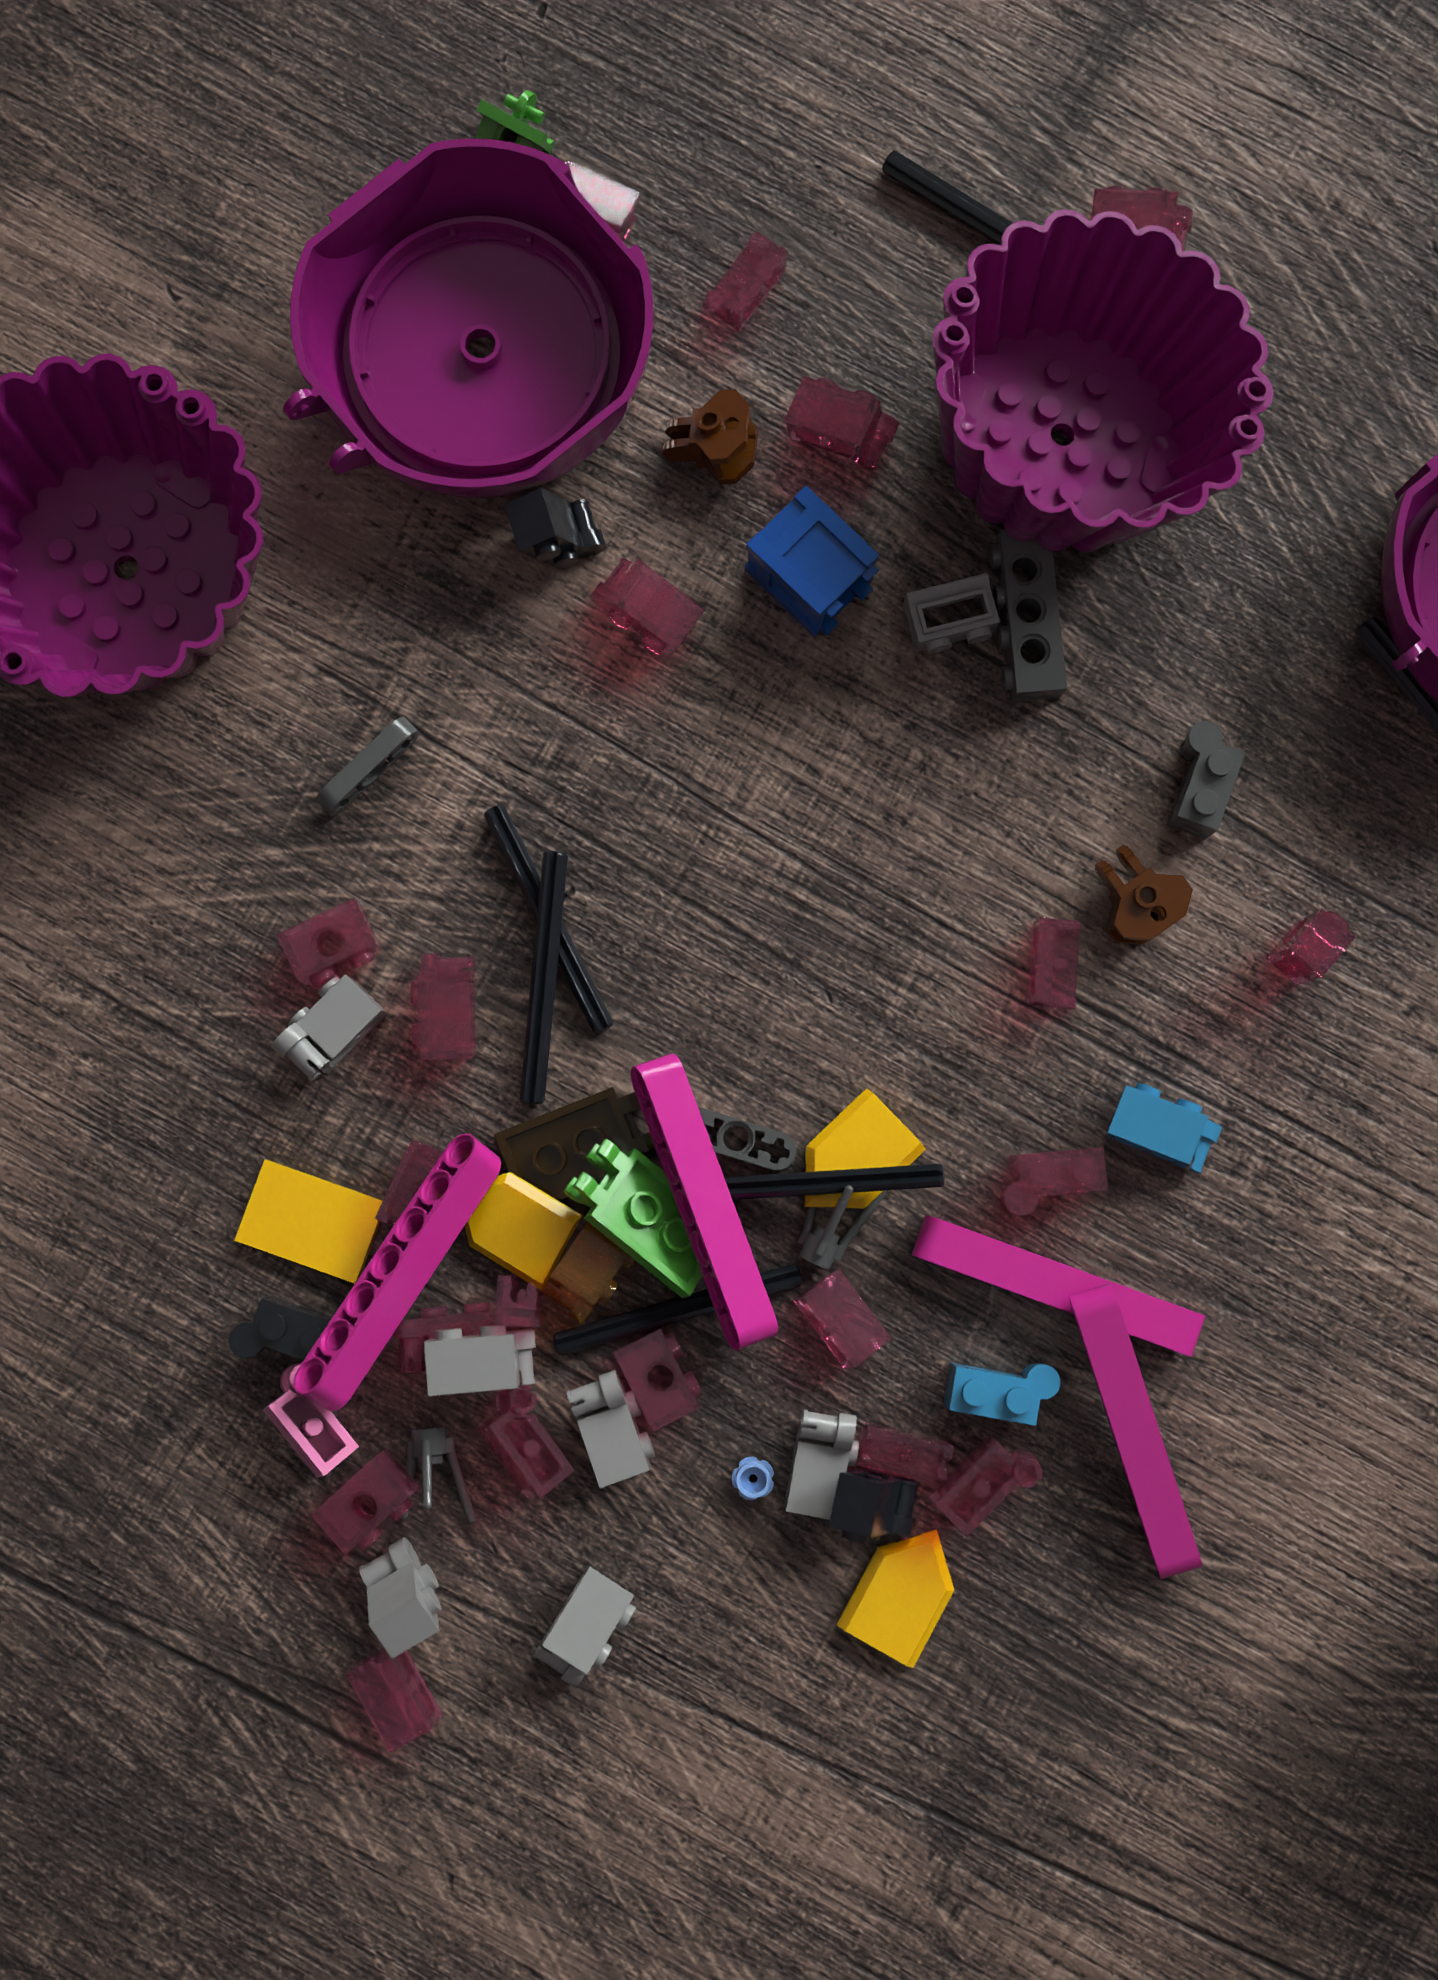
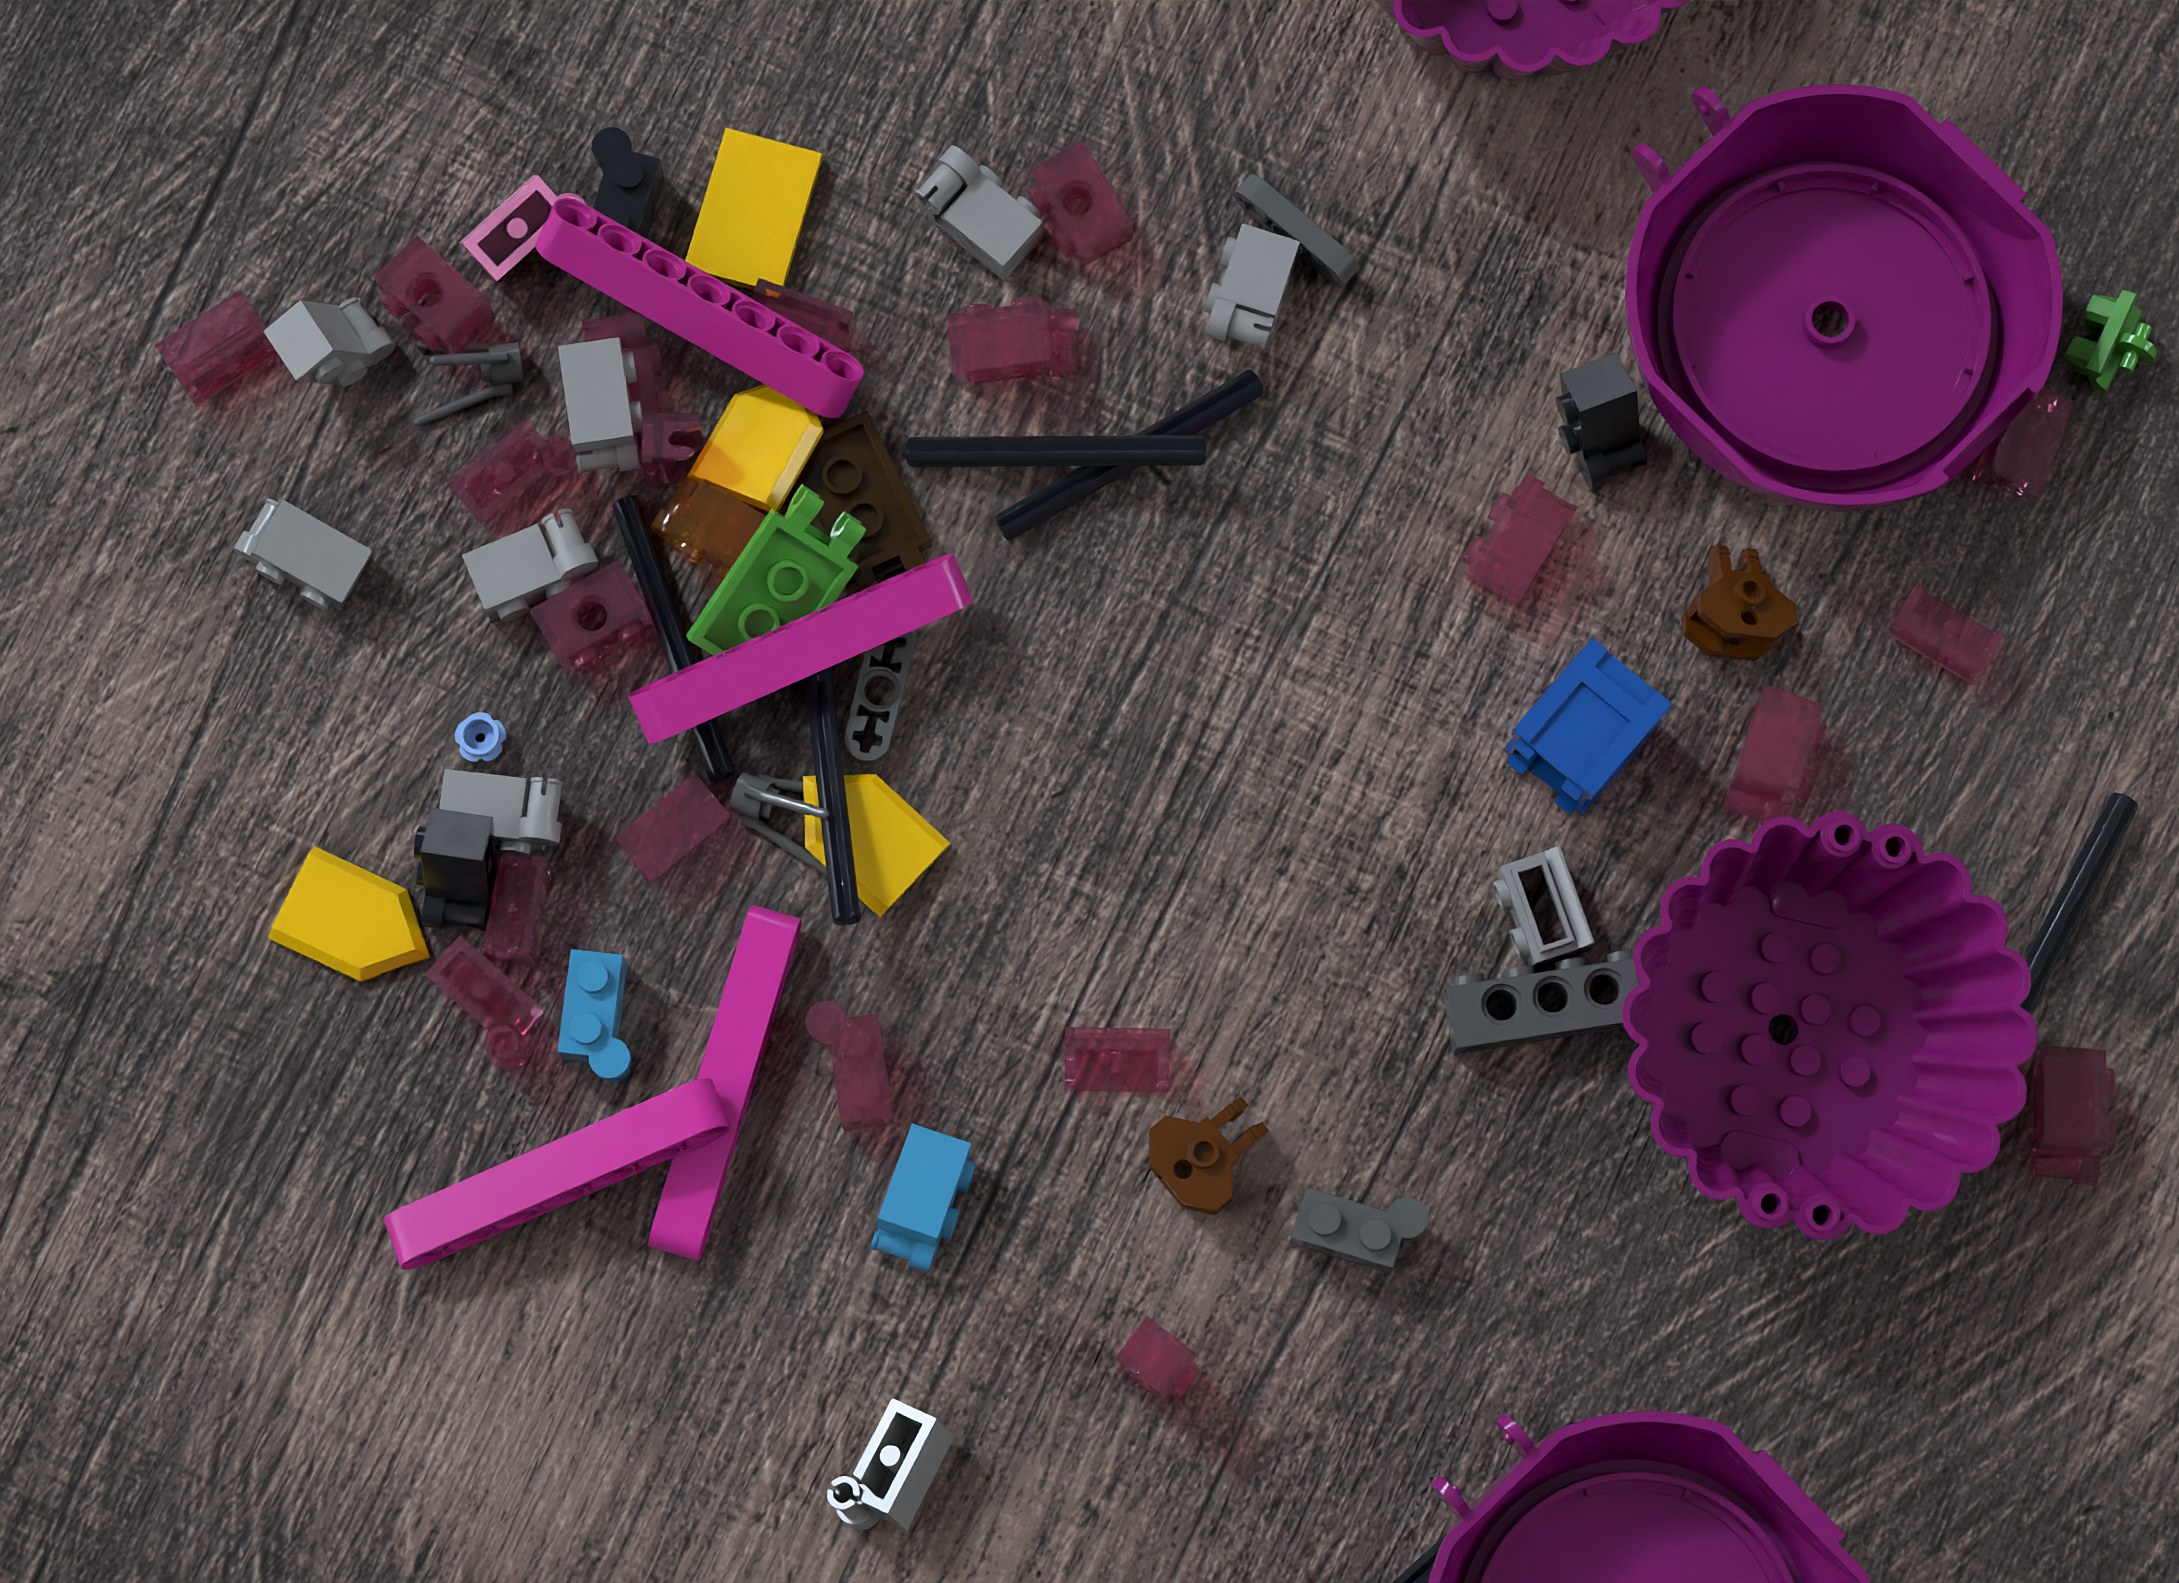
camera: 90 degrees right, 5 degrees down
(415, 805) = (1253, 286): none -> light grey hinge
(1386, 1165) = (894, 1469): none -> light grey hinge

